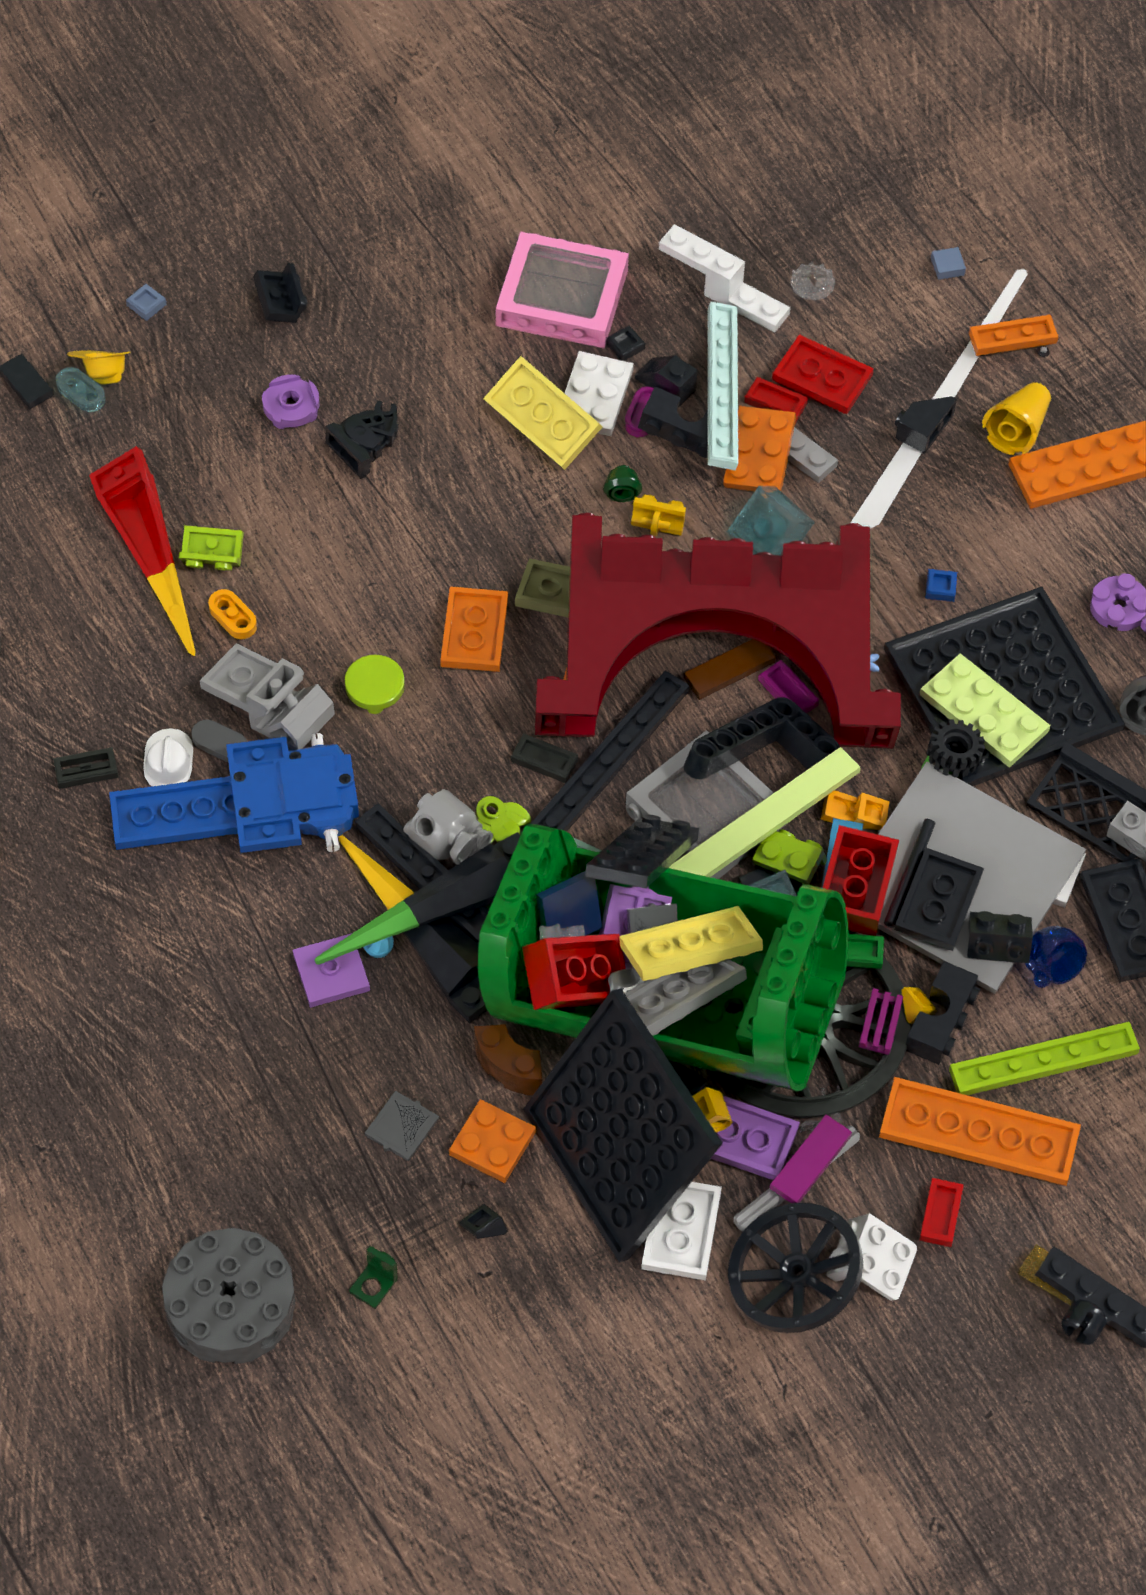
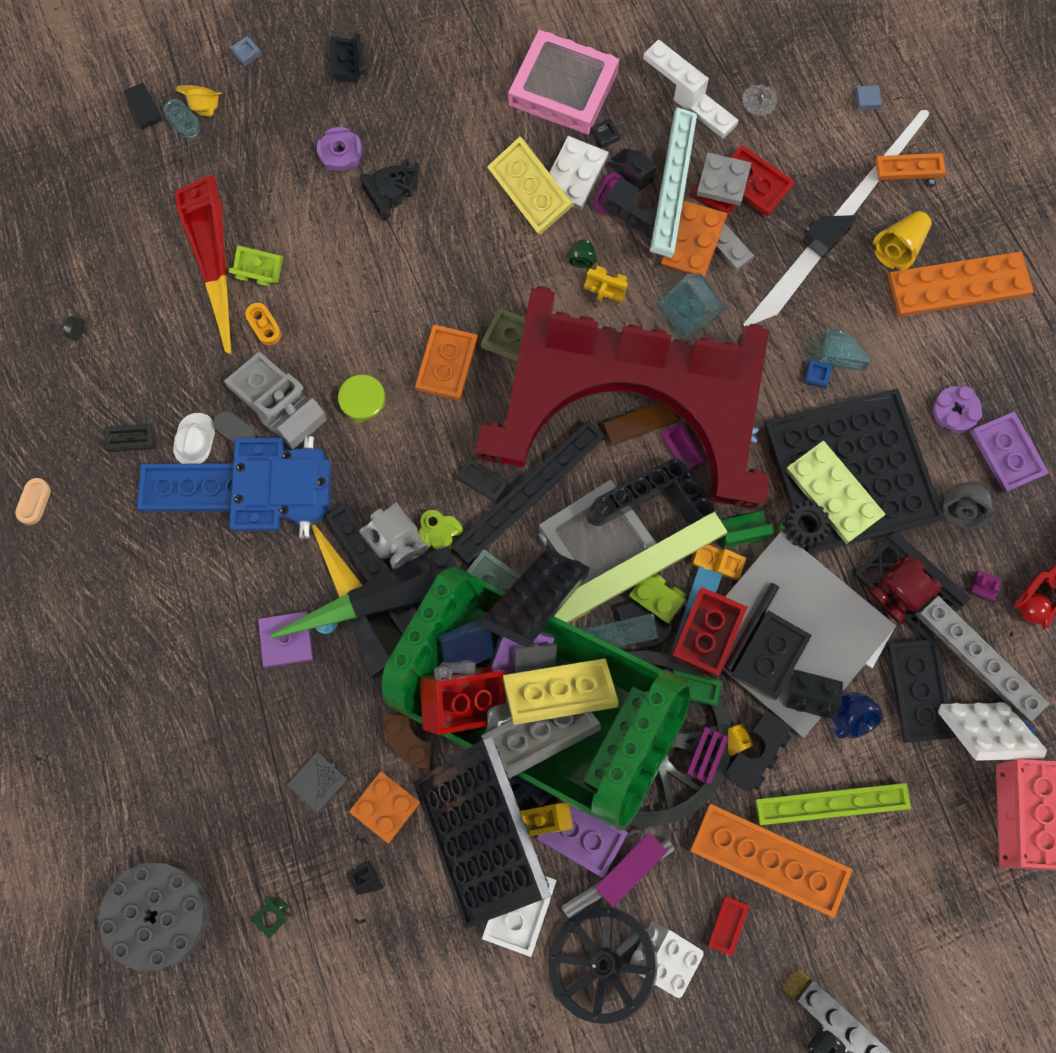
camera: 10 degrees right, 15 degrees up
(784, 375) = (723, 179): none -> light grey plate
(884, 771) = (746, 529): none -> green panel
(968, 553) = (842, 351): none -> clear light blue slope
(1091, 799) = (909, 587): none -> dark red piece

